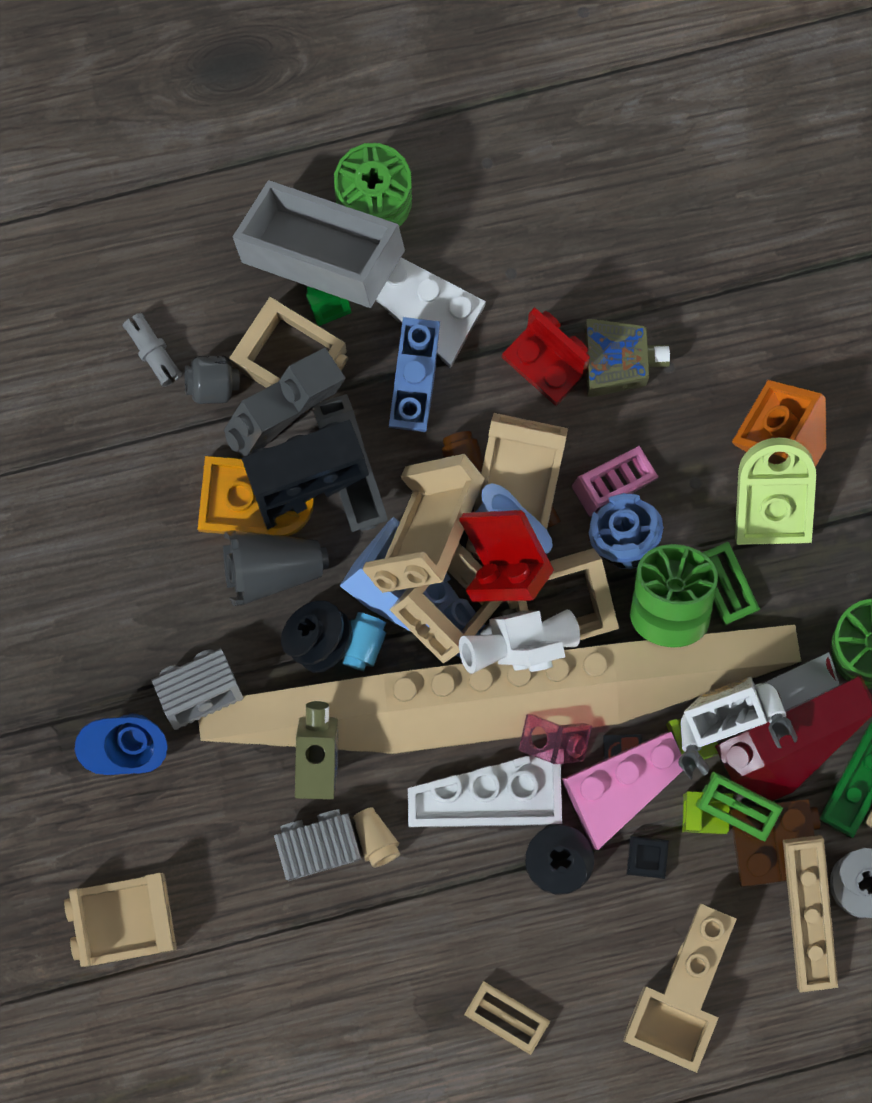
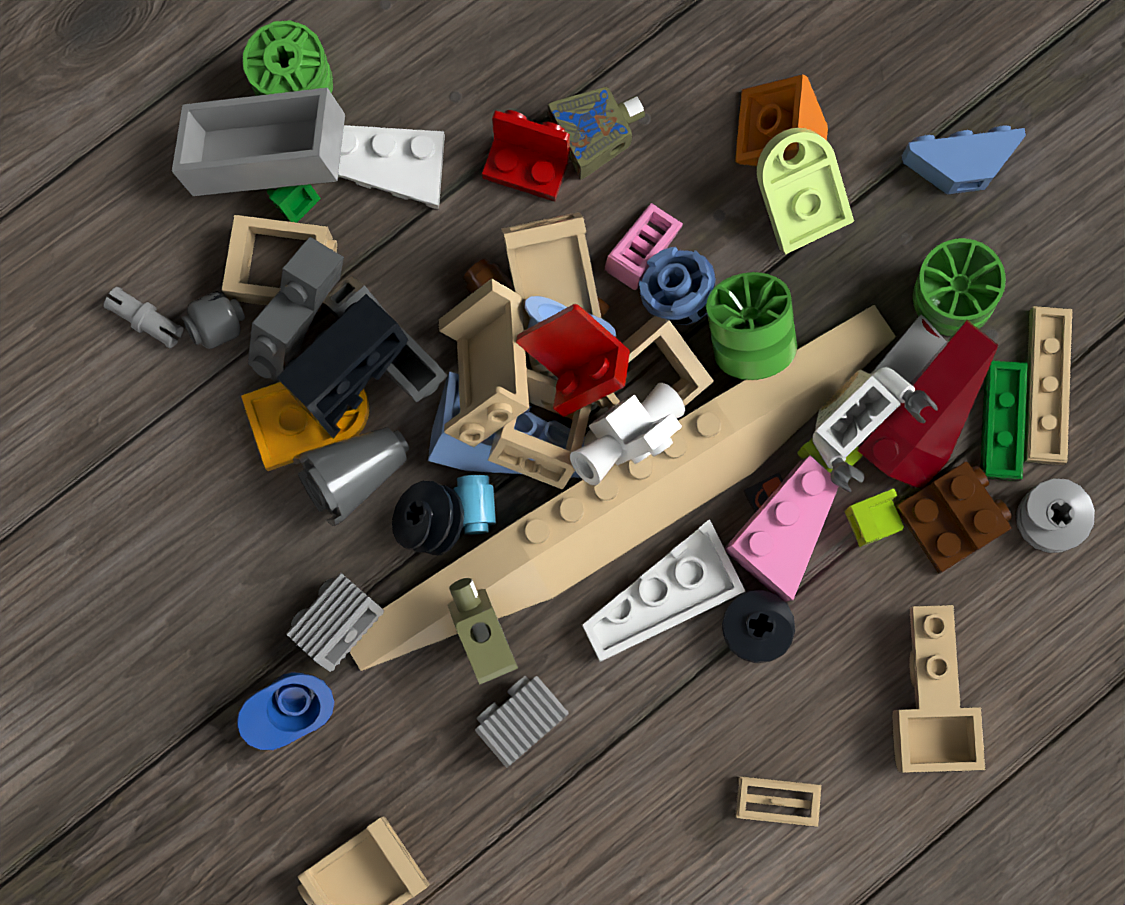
camera: 25 degrees left, 0 degrees up
(376, 839) = (573, 687): tan cone -> none
(414, 374) = (408, 227): medium blue slope -> none
(564, 742) = (712, 512): clear pink bracket -> none
(647, 857) = (839, 586): black tile -> none
(710, 791) = (874, 495): bright green tile -> none
(739, 613) = (807, 288): bright green tile -> none
(810, 913) = (1019, 568): tan tile -> none

